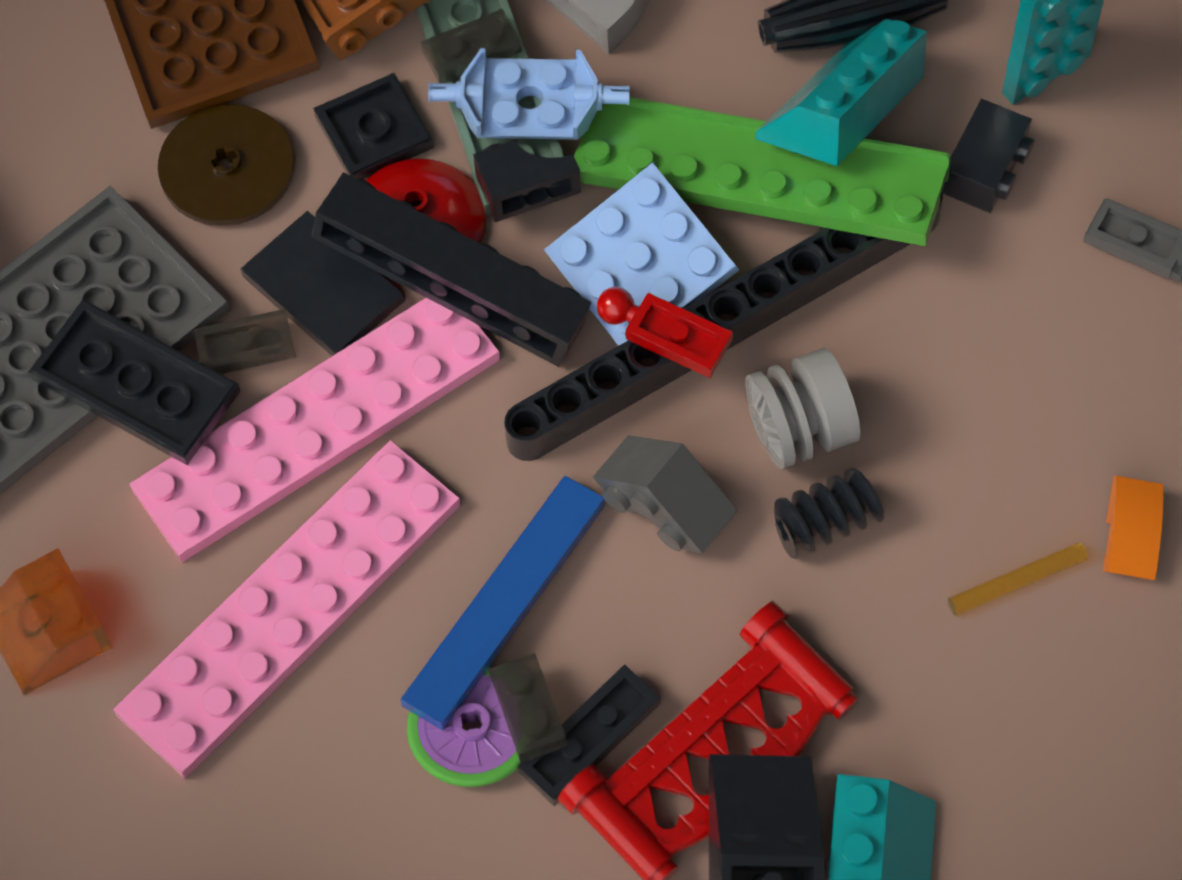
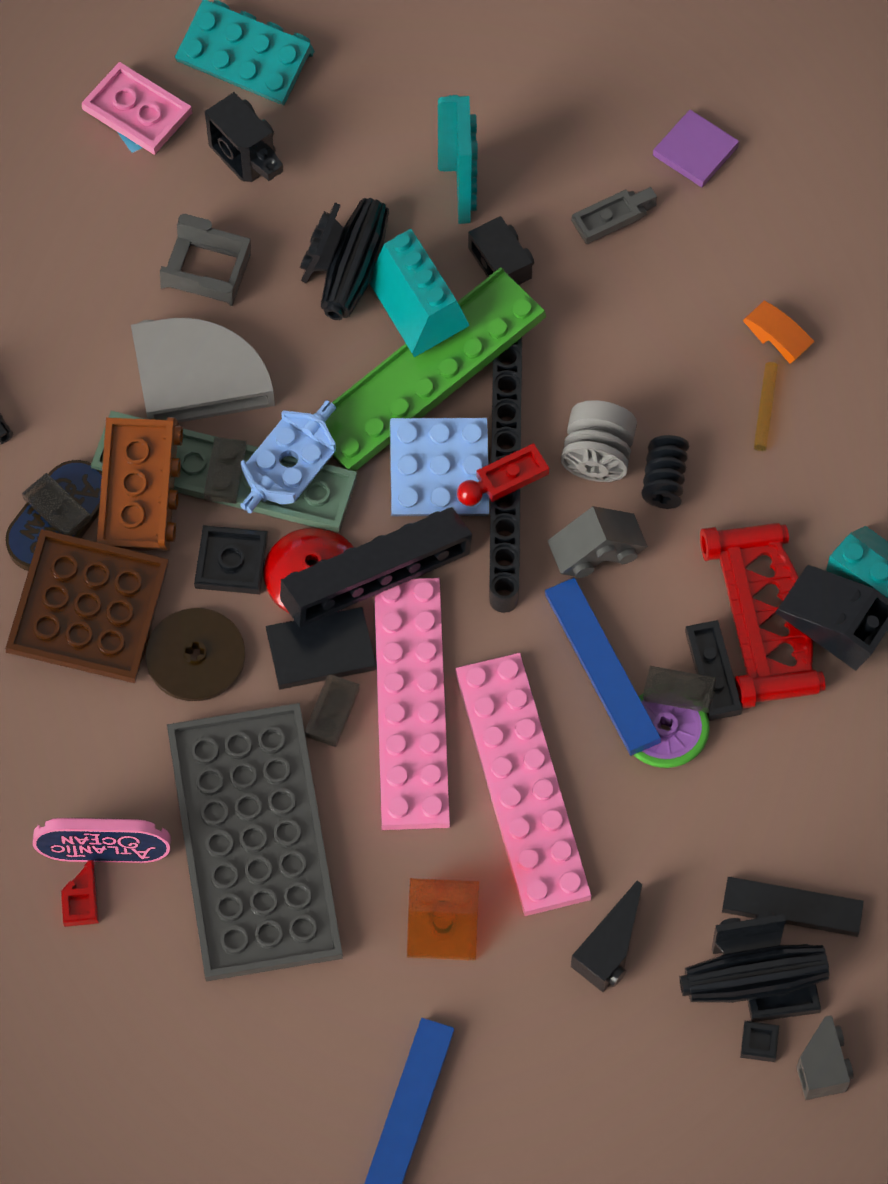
camera: 60 degrees left, 0 degrees up
(127, 833) = (605, 950): none -> black slope
(134, 381) = (319, 781): black tile -> none
(521, 181) = (341, 497): black arch -> none

